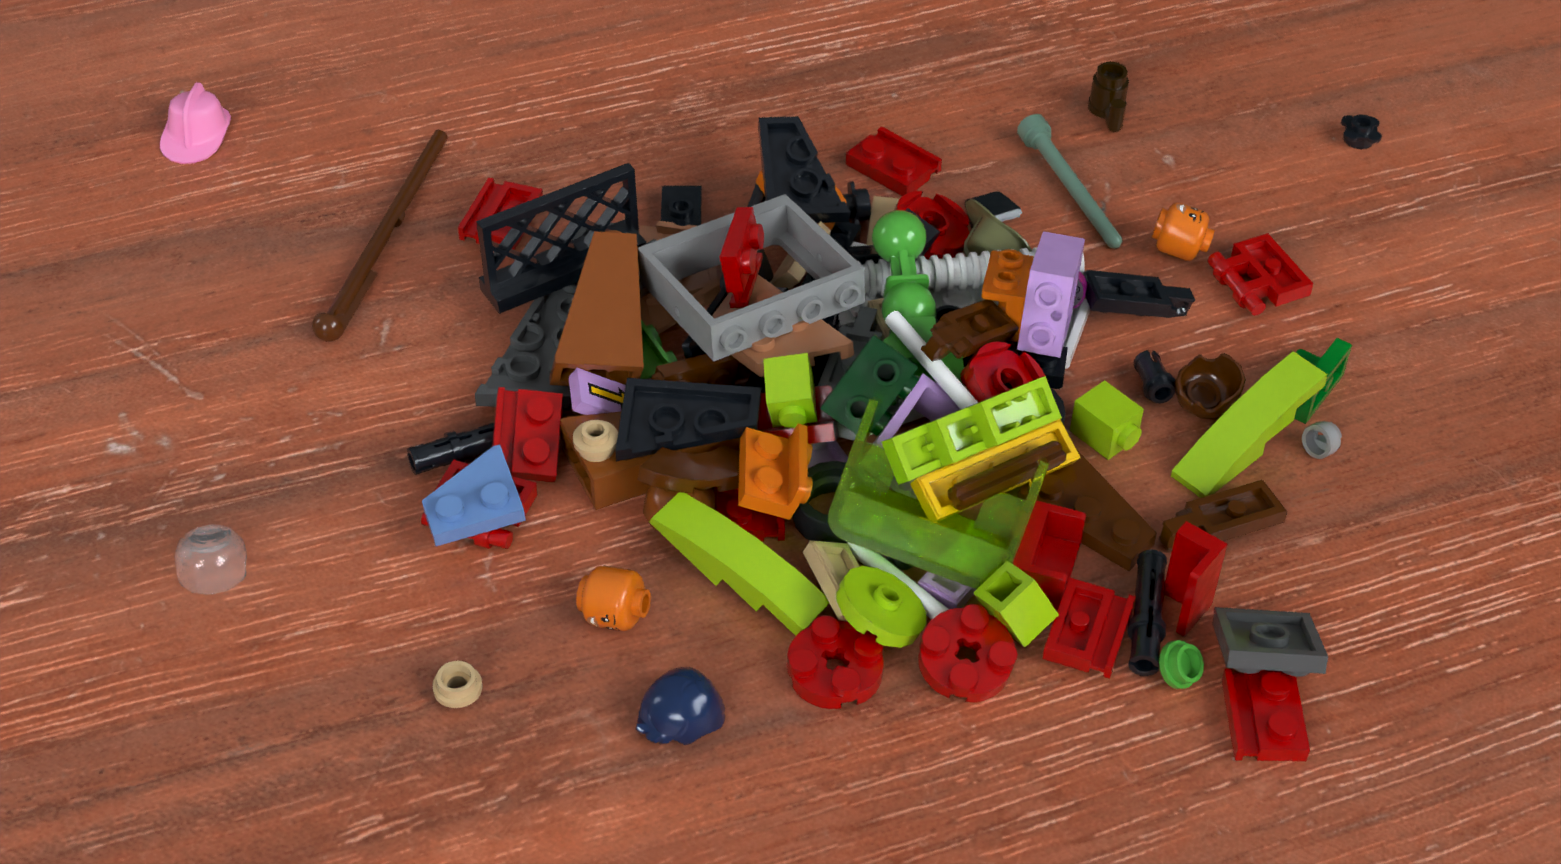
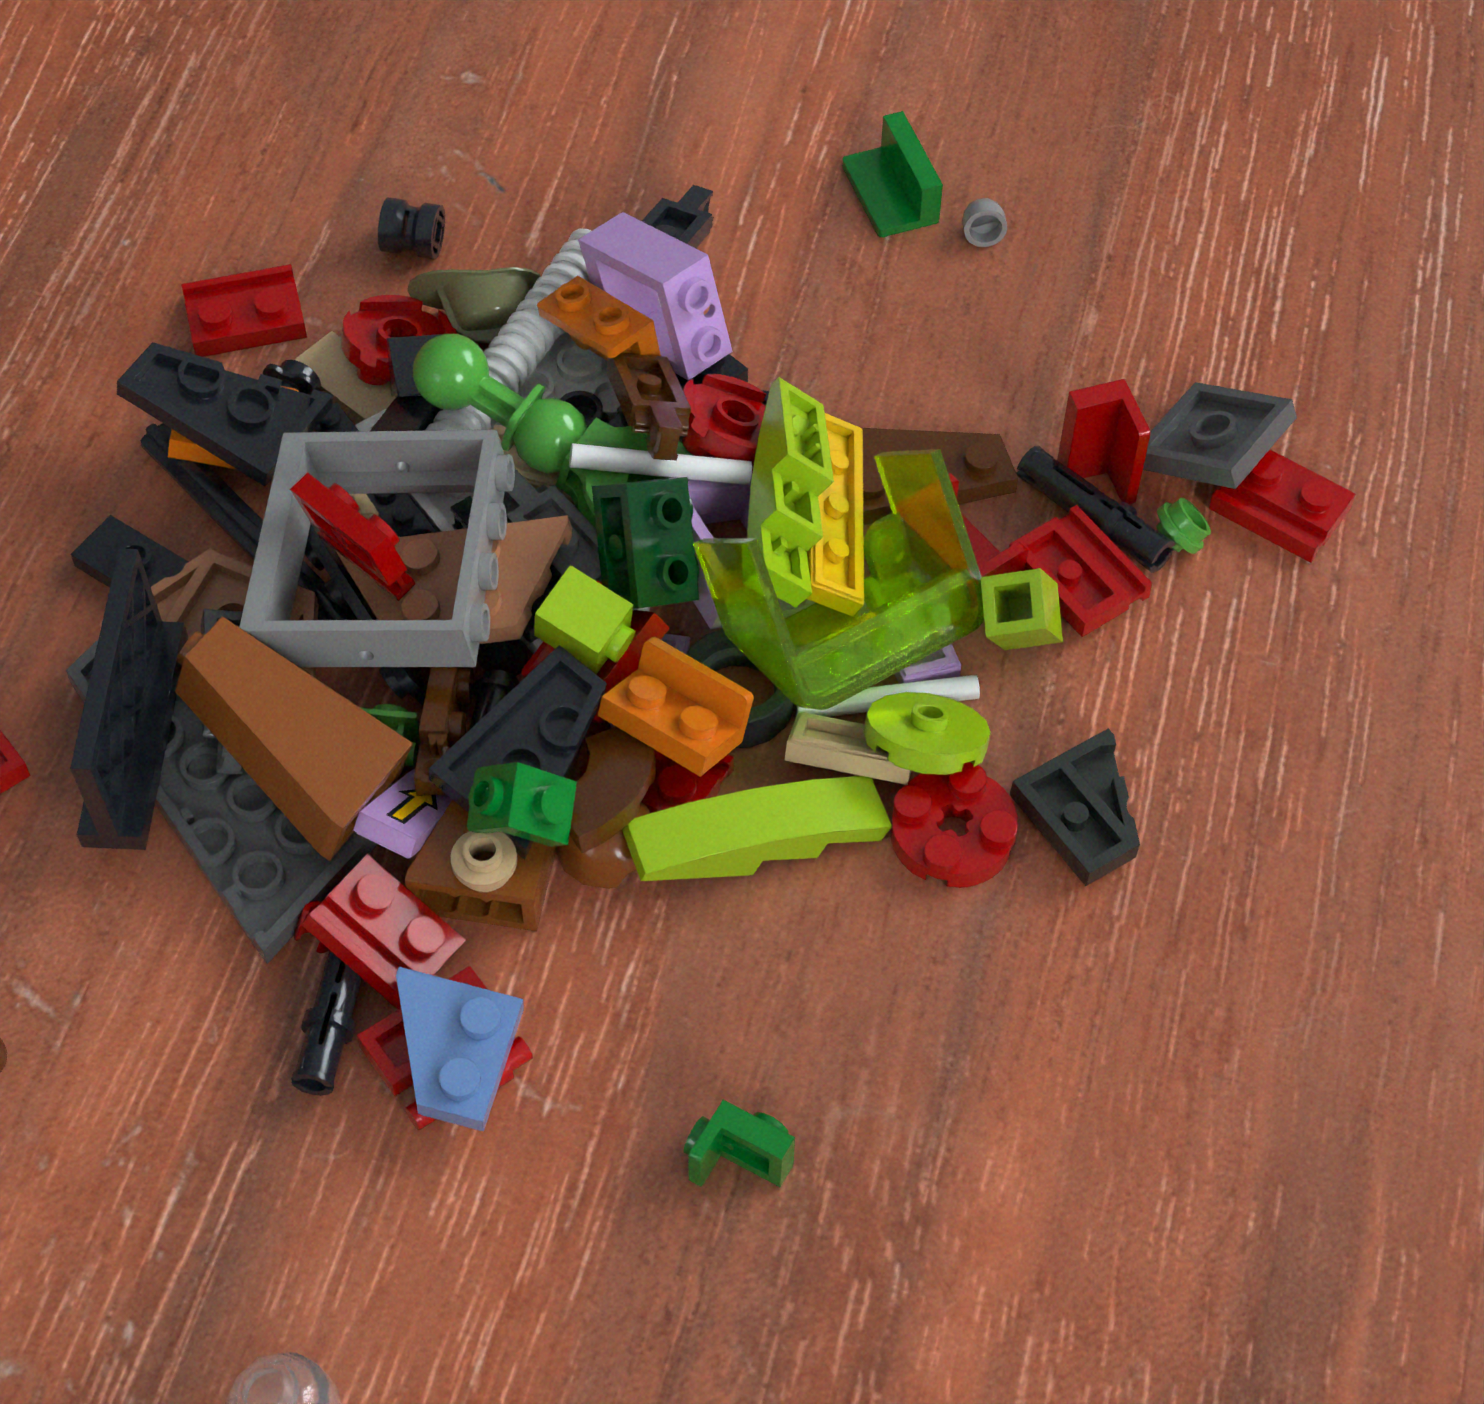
camera: 55 degrees left, 10 degrees up
(453, 675) = (710, 1207): tan plate -> none
(514, 655) = (748, 1140): none -> green bracket
(613, 598) = (713, 985): orange head -> none
(636, 428) = (522, 803): none -> green bracket
(680, 708) = (914, 1011): dark blue hair -> none
(907, 721) = (1082, 807): none -> pearl dark grey wing
(969, 628) = (1054, 672): red plate -> none
(998, 205) = (413, 260): black slope -> none
(1004, 475) = (860, 504): reddish brown axle -> none
(1020, 187) = (411, 228): none -> black wheel
(1036, 134) = (333, 158): sand green piece -> none
(1106, 420) = (823, 369): lime brick -> none
(1109, 94) = (336, 58): dark brown piece -> none
(1157, 383) = (787, 296): black pin -> none
(1182, 231) = (608, 135): orange head -> none
(1209, 385) = (849, 258): reddish brown hair -> none
(1228, 513) = (1021, 366): reddish brown hinge -> none
(1247, 425) = (930, 265): lime slope -> none
(1269, 268) = (719, 104): red plate -> none

